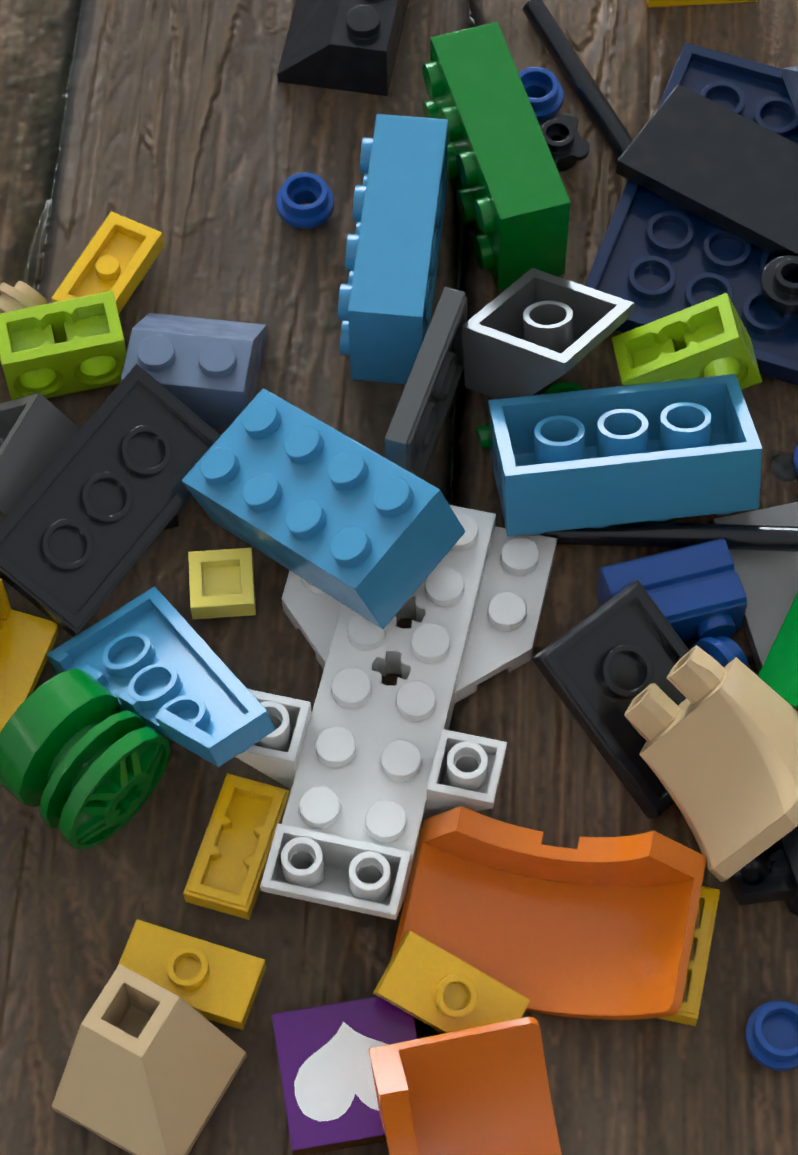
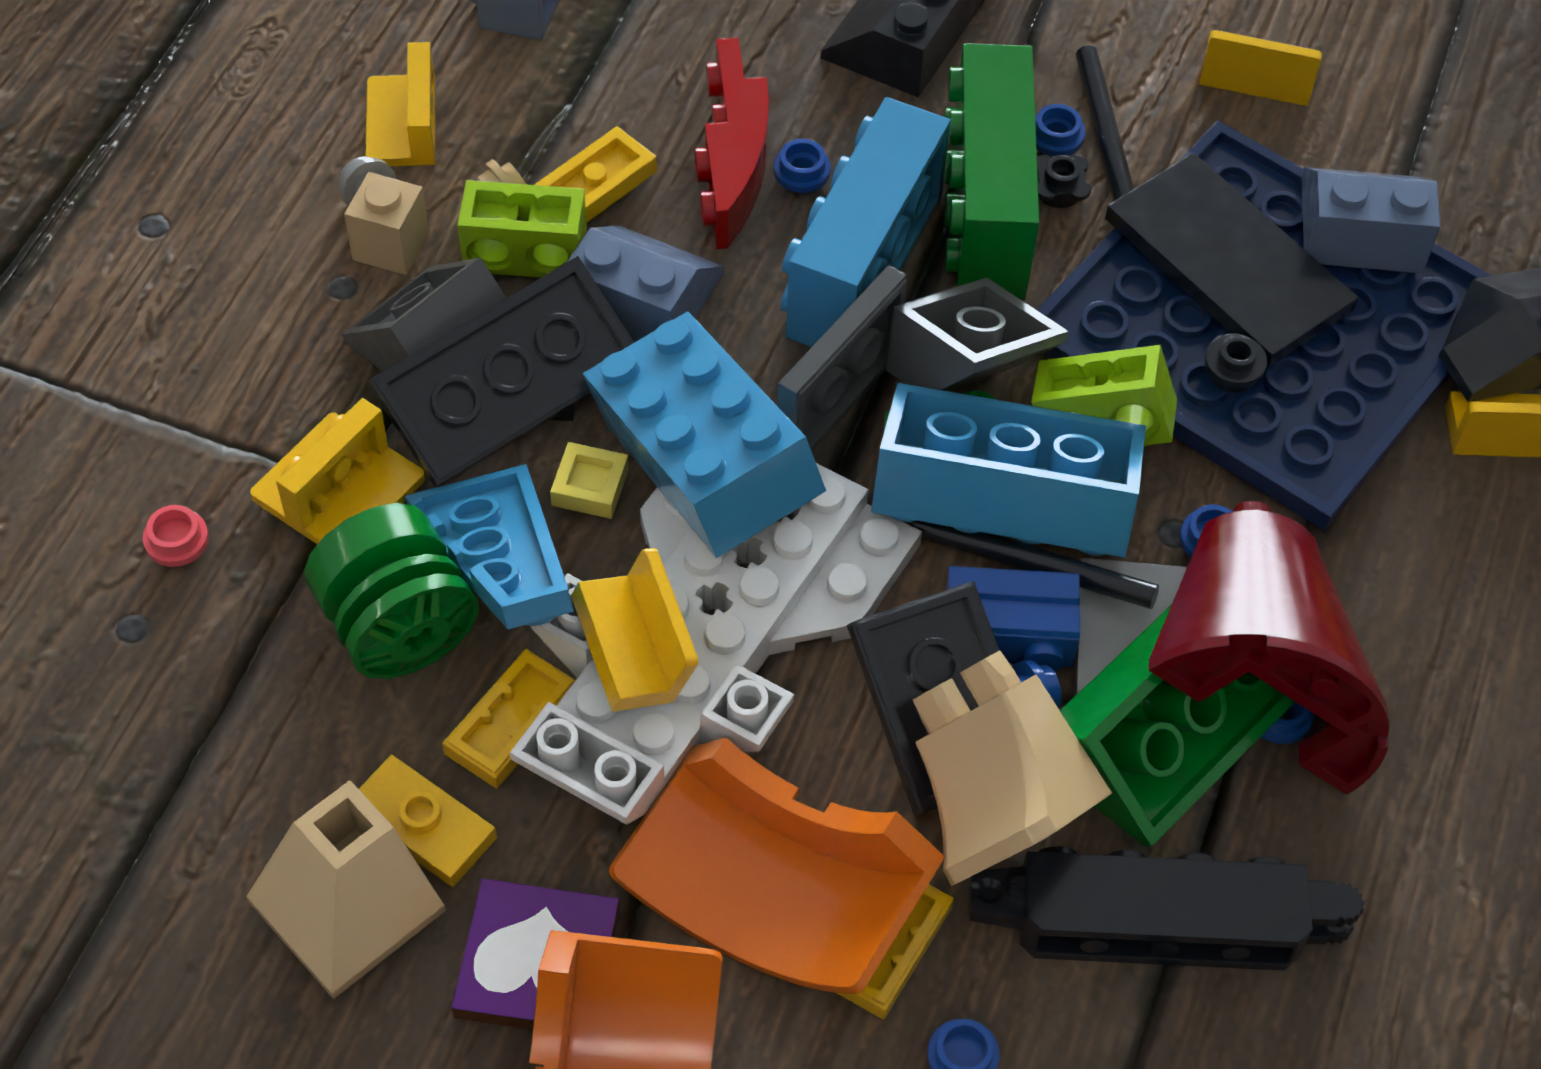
camera: 15 degrees right, 5 degrees down
(231, 194) = (734, 144): none -> red slope
(342, 731) = (636, 634): none -> yellow panel
(445, 988) = (649, 902): yellow plate -> none

